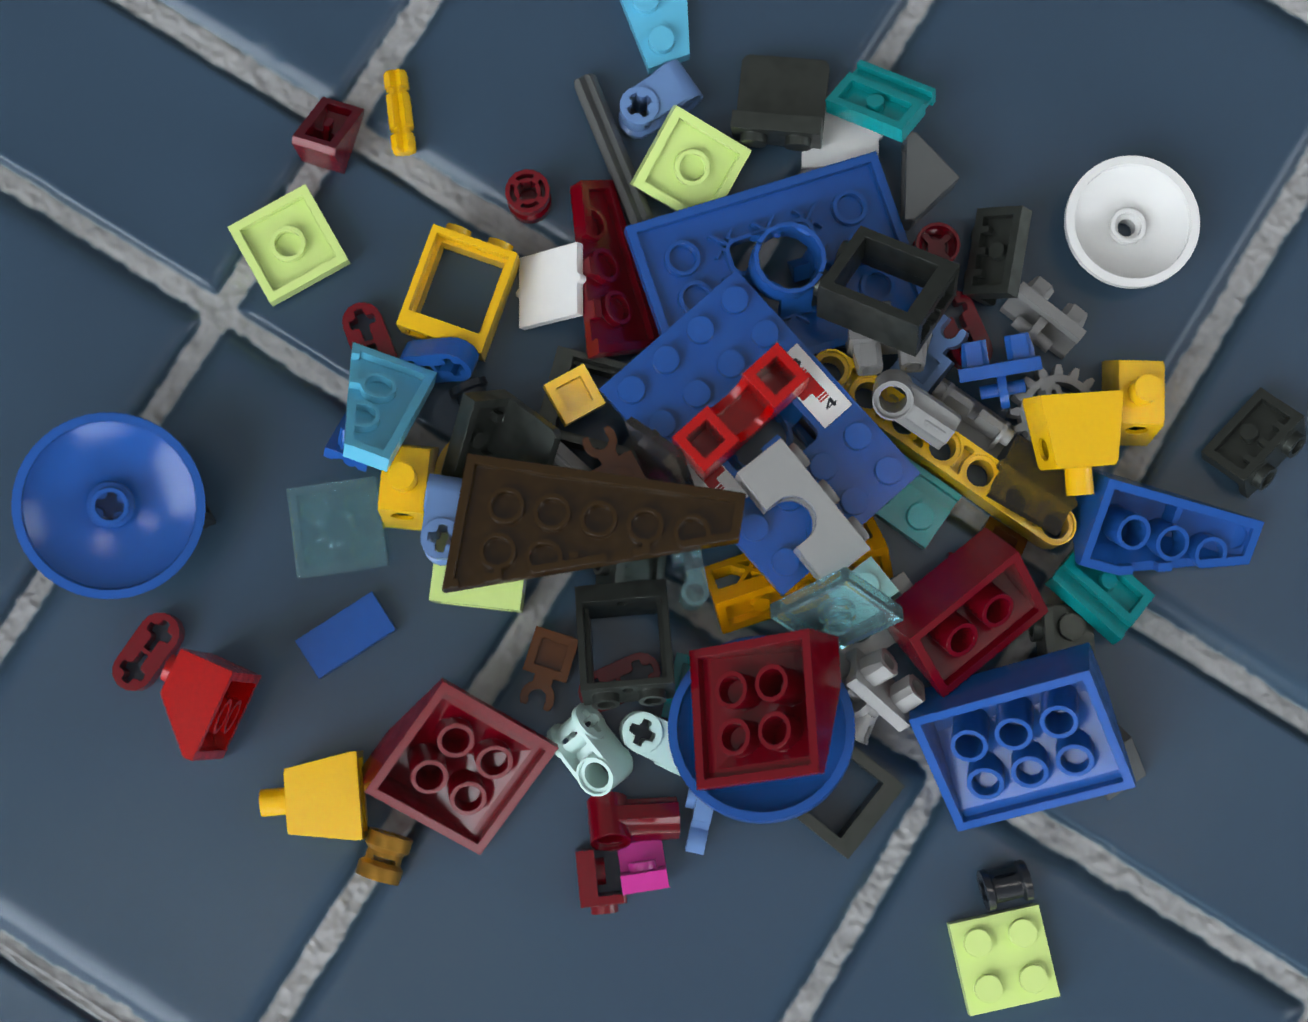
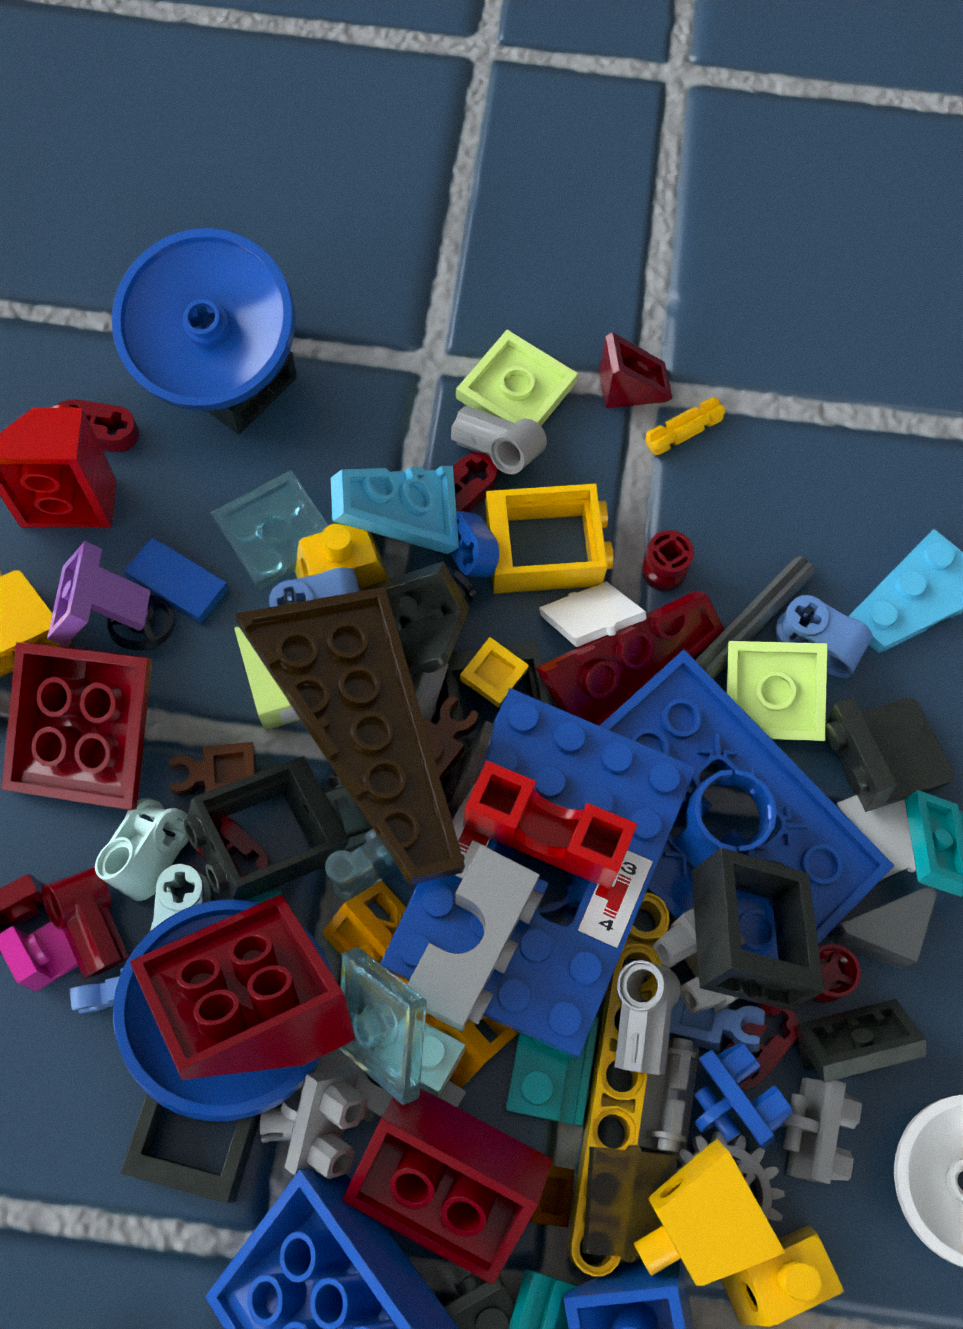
camera: 65 degrees right, 15 degrees down
(338, 712) = (90, 587): none -> medium lavender piece
(352, 281) = (507, 443): none -> light grey piece

